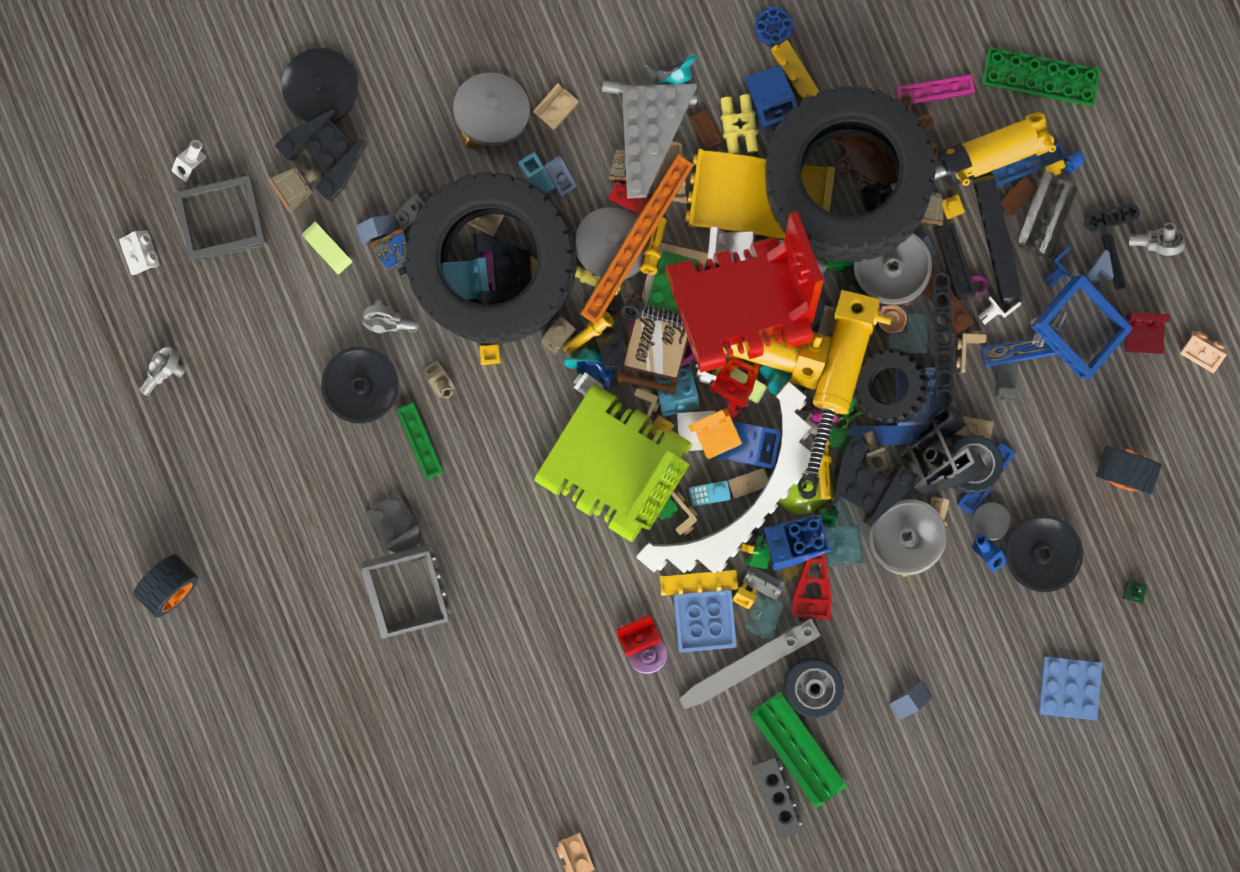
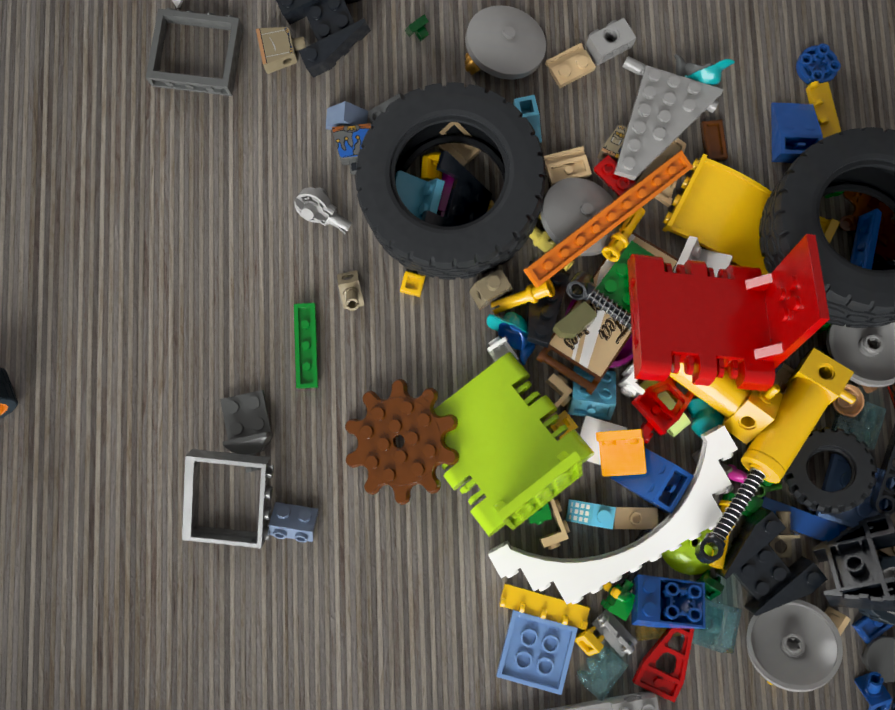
camera: 25 degrees right, 5 degrees down
(139, 251) = (102, 55): white bracket -> none
(161, 367) = (71, 171): light grey pin -> none
(326, 248) = (288, 118): yellowish green beam -> none
(360, 385) = (266, 265): black dish -> none
(408, 123) = (418, 28): none -> dark green tile
(466, 246) = (429, 166): none -> yellow plate
(466, 591) = (293, 522): none -> sand blue bracket
(550, 489) = (423, 444): none -> reddish brown plate
(560, 176) = (551, 130): sand blue slope -> none
(578, 83) = (604, 50): none -> light grey brick
(585, 200) = (567, 164): none -> tan plate
(638, 635) = (459, 641): red bracket -> none
(639, 338) = (575, 321): none -> olive piece
(657, 653) = (461, 658): lavender dish -> none
(747, 118) = (752, 146): light yellow pin -> none
(858, 182) = (866, 239): none -> blue tile

